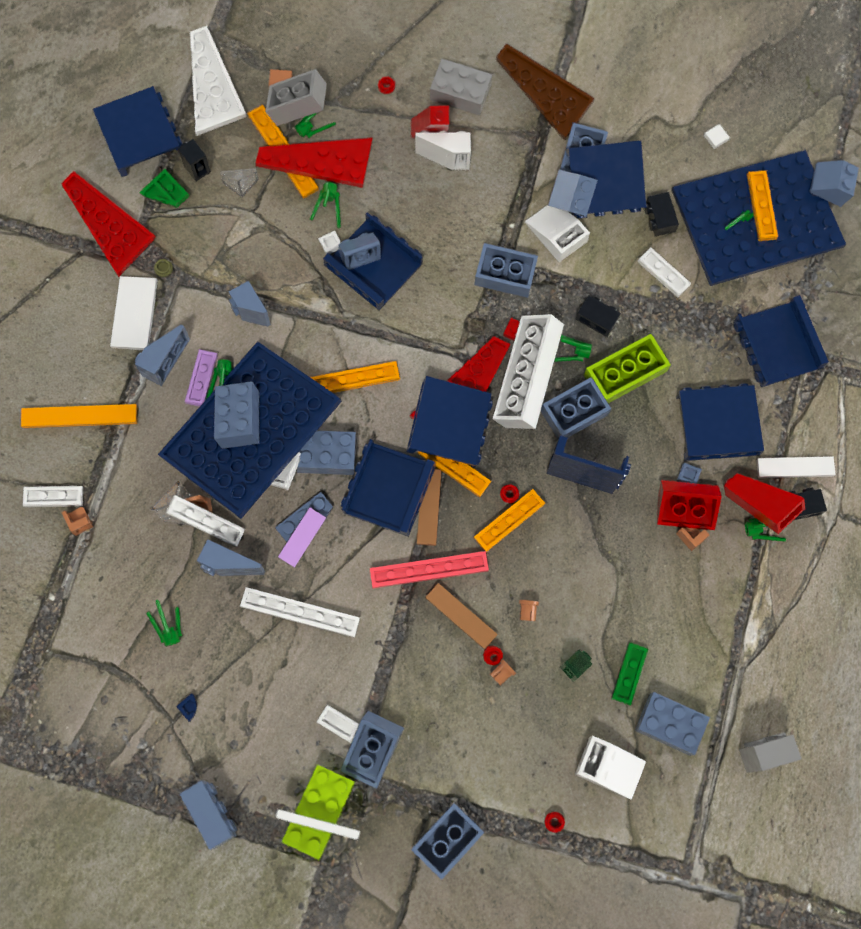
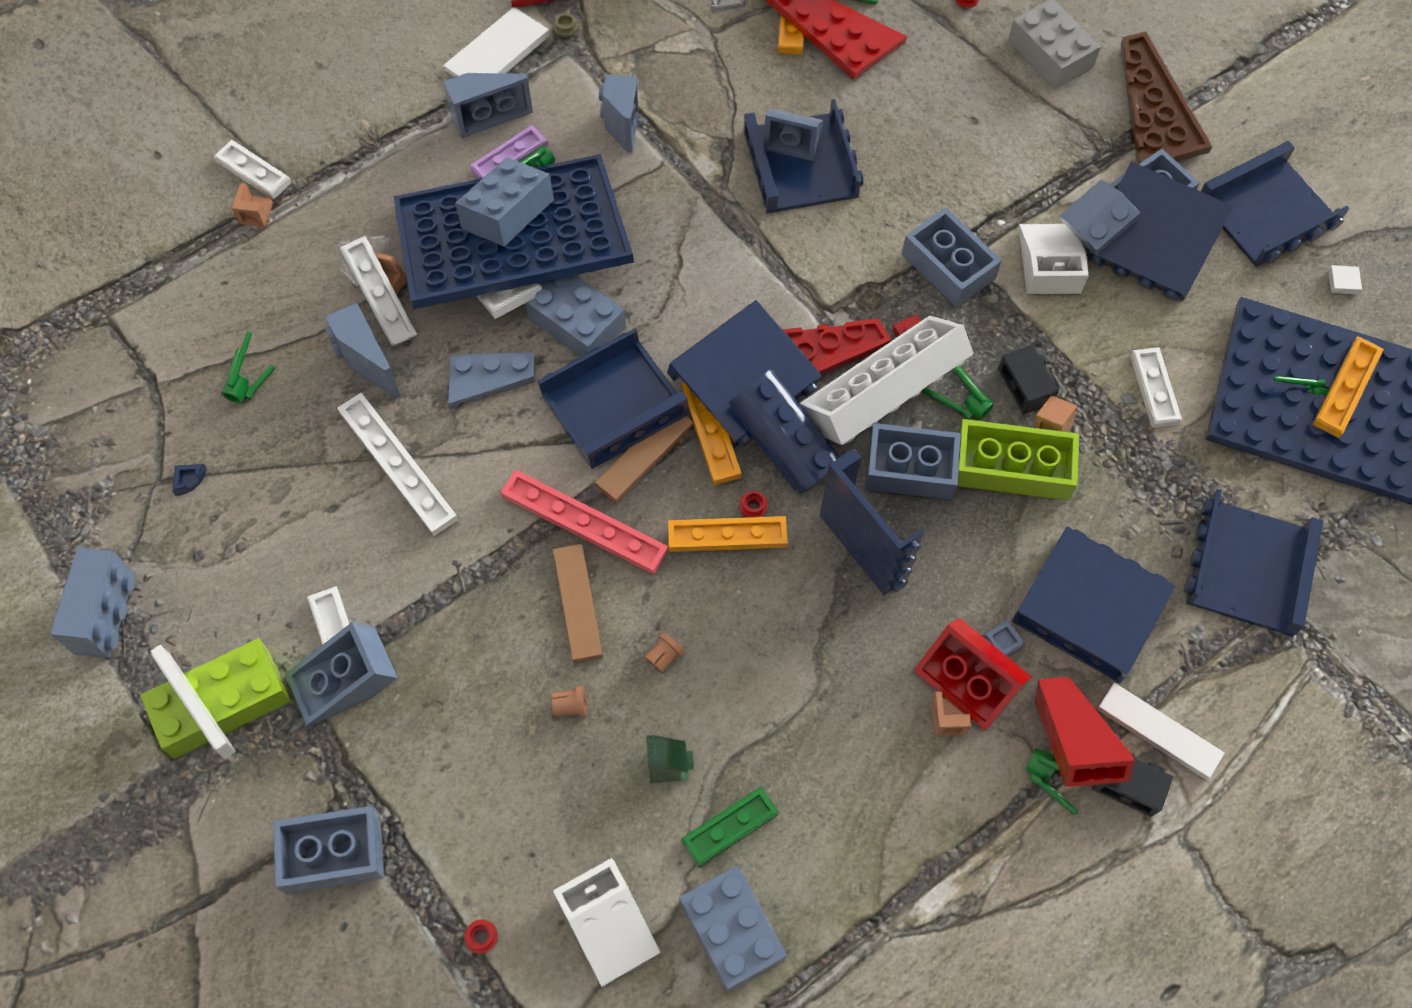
camera: 40 degrees right, 10 degrees down
(79, 416) = (351, 111): light orange tile -> none
(302, 537) = (468, 382): lavender tile -> none
(328, 193) = (808, 61): green plant -> none
(330, 242) = (765, 105): white tile -> none
(359, 377) = (682, 264): light orange tile -> none
(431, 120) = (988, 51): red slope -> none
(445, 148) = (982, 89): white slope -> none
(491, 650) = (582, 669): red plate -> none
(498, 441) = (784, 431): none -> dark blue container
(628, 330) = (1056, 415): none -> nougat panel
(649, 116) = (1271, 206): none -> dark blue panel
(661, 214) = (1202, 318): black brick -> none

